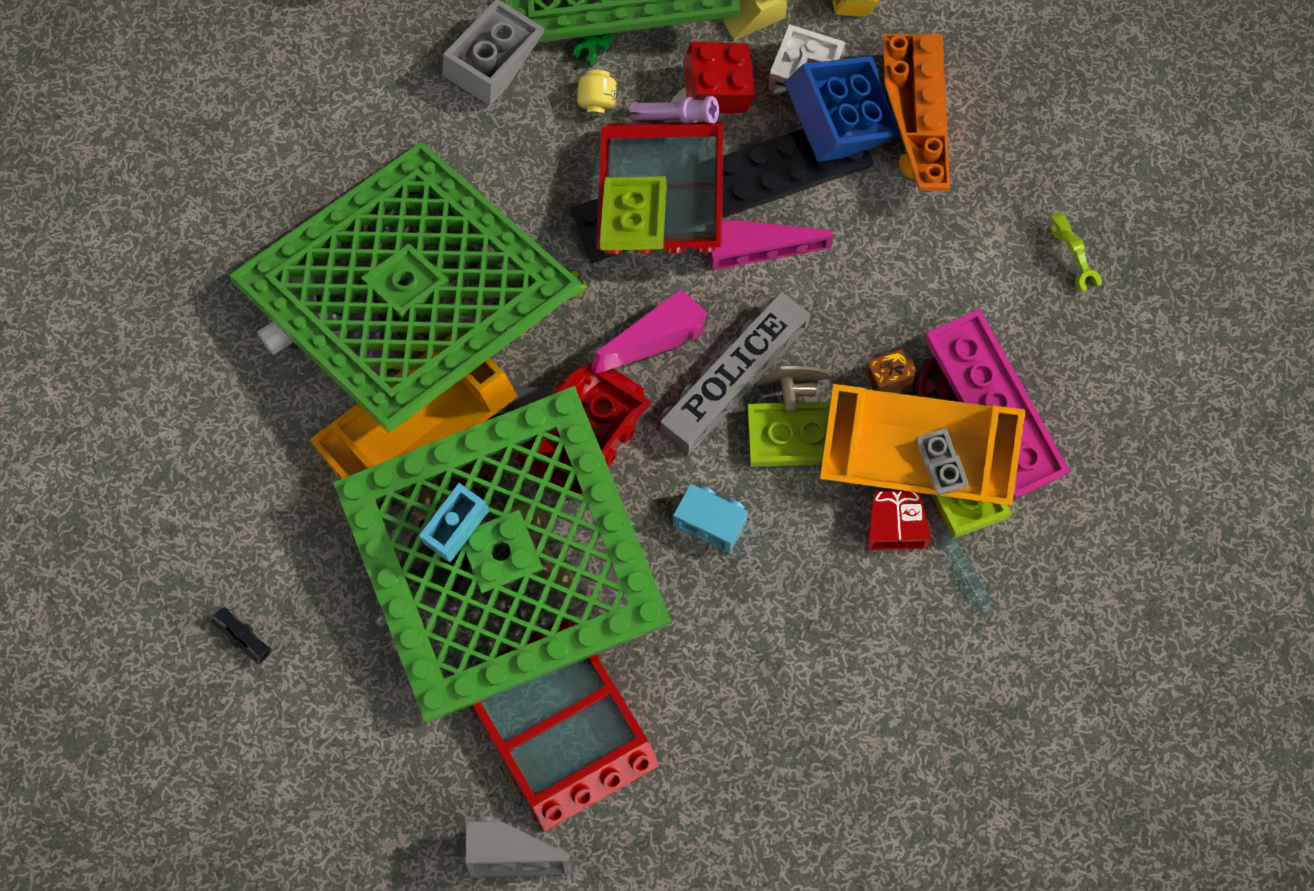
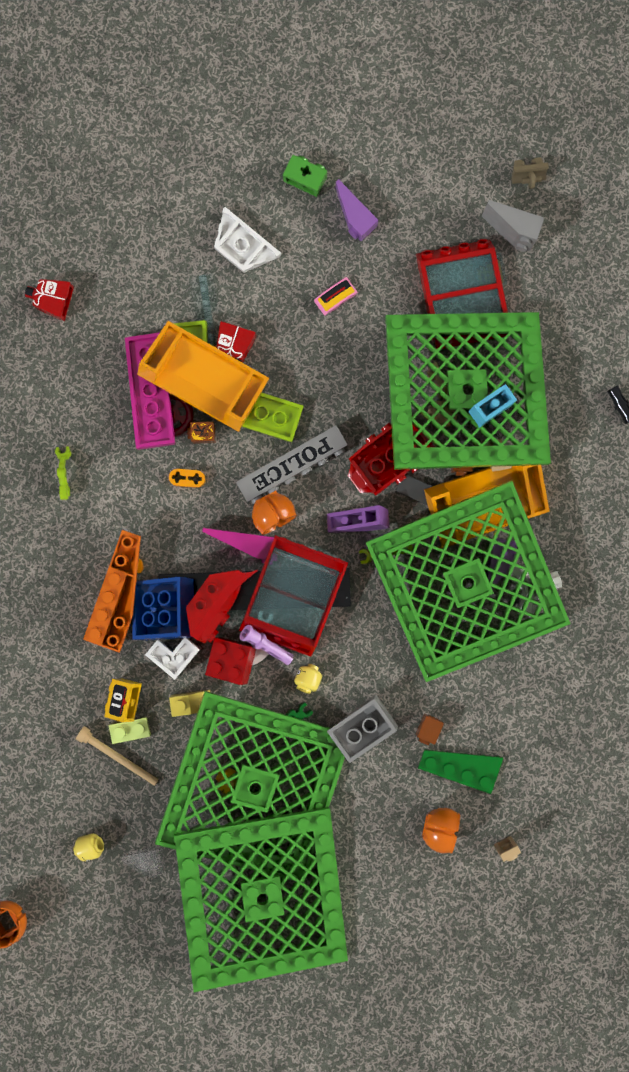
camera: 155 degrees left, 20 degrees up
(316, 52) = (467, 769): none -> green wing
(394, 82) = (429, 729): none -> dark orange brick
(596, 327) = (358, 520): none -> medium lavender slope
(633, 213) = (318, 576): lime plate -> none
(658, 331) = (317, 506): dark pink slope -> none
(710, 517) = (338, 381): medium azure brick -> none
(736, 289) = (272, 511): none -> orange piece
(764, 648) = (335, 296): none -> slope
(771, 131) = (213, 602): none -> red slope
(780, 787) = (357, 216): none -> medium lavender slope
(790, 379) = (261, 443): dark tan shield -> none
(885, 300) = (187, 473): none -> light orange beam
(905, 816) = (312, 182): none -> bright green brick
(941, 461) = (197, 359): light grey slope -> none
(948, 680) = (242, 244): none -> white wing
(1209, 492) = (51, 297): none -> red torso

